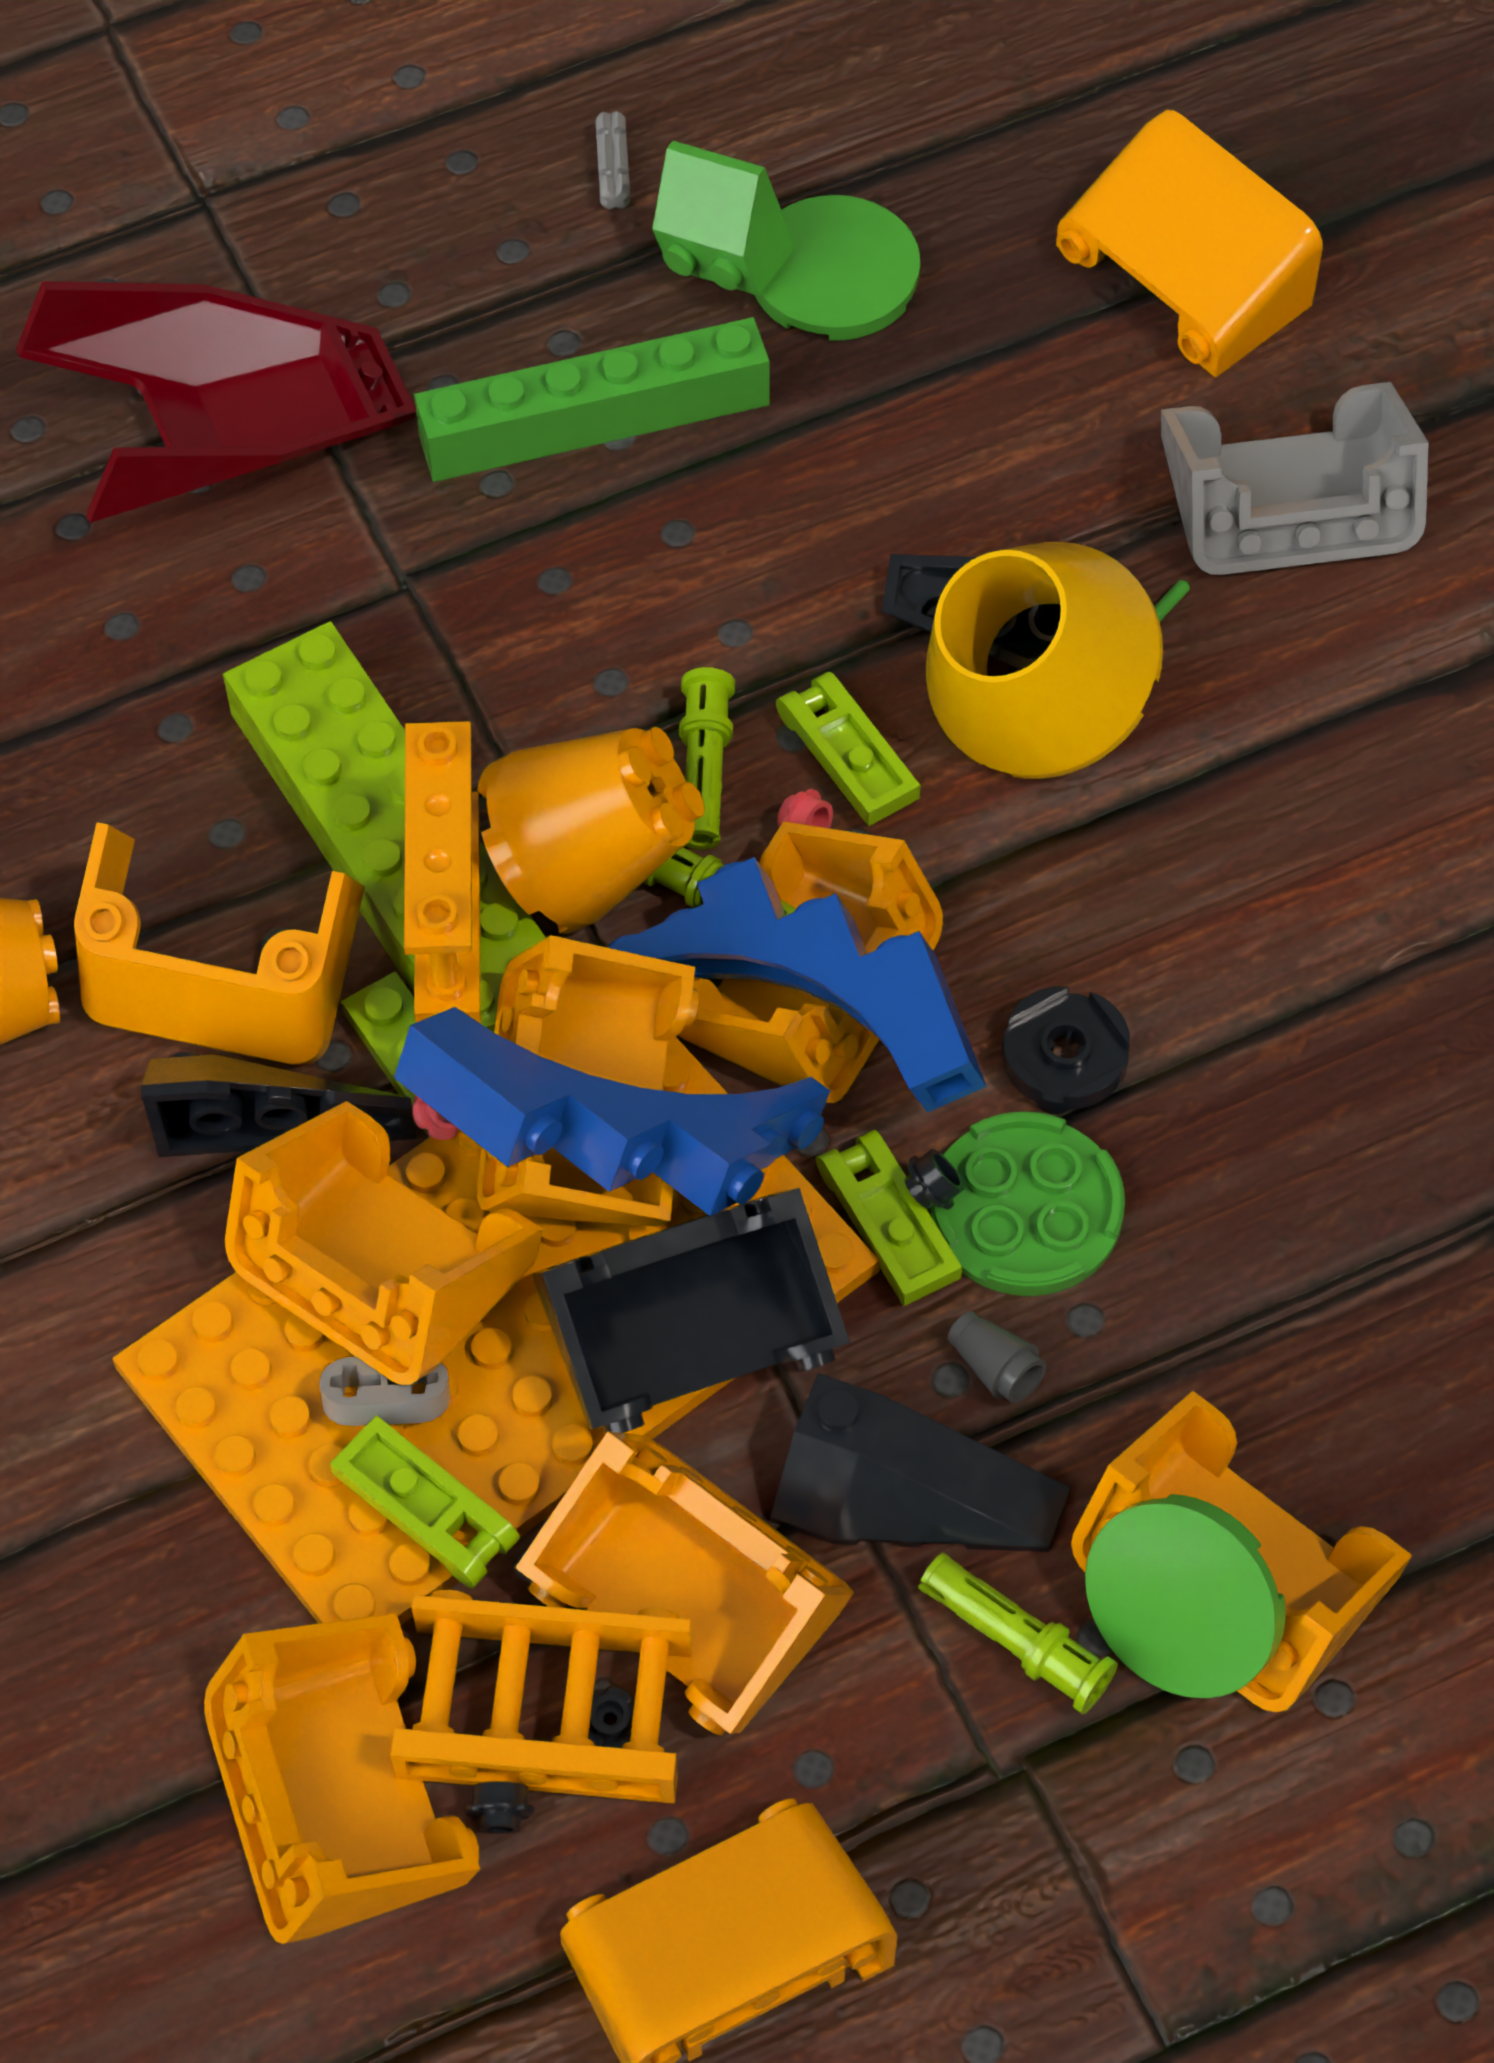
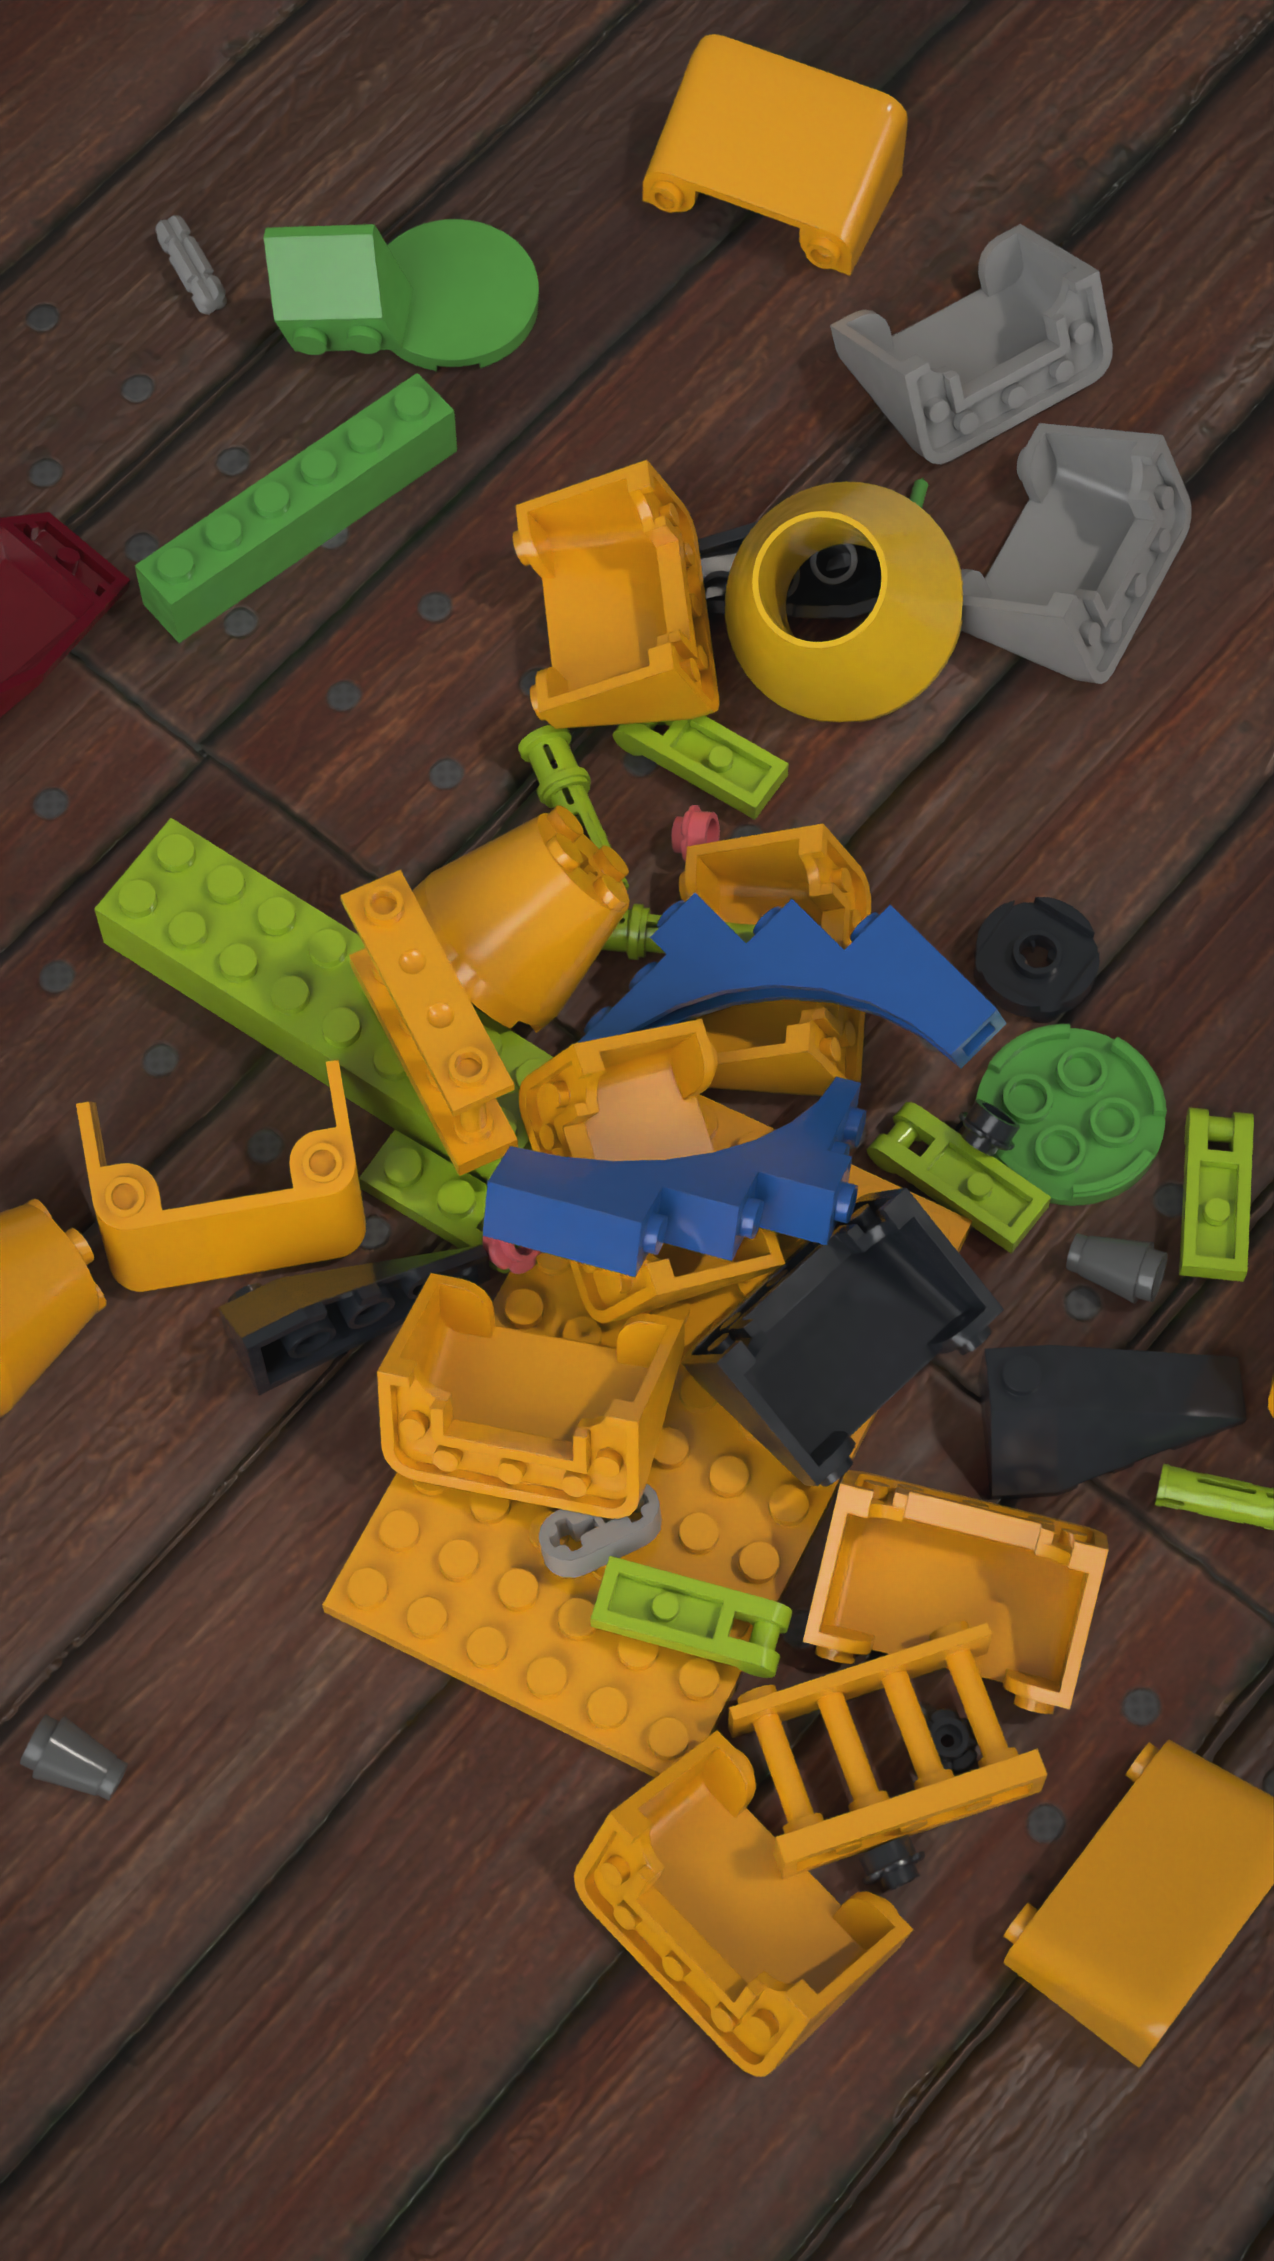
camera: 25 degrees left, 5 degrees up
(837, 583) = (619, 602): none -> light orange windscreen
(1124, 1331) = (1216, 1196): none -> lime plate
(1302, 705) = (1084, 551): none -> light grey windscreen

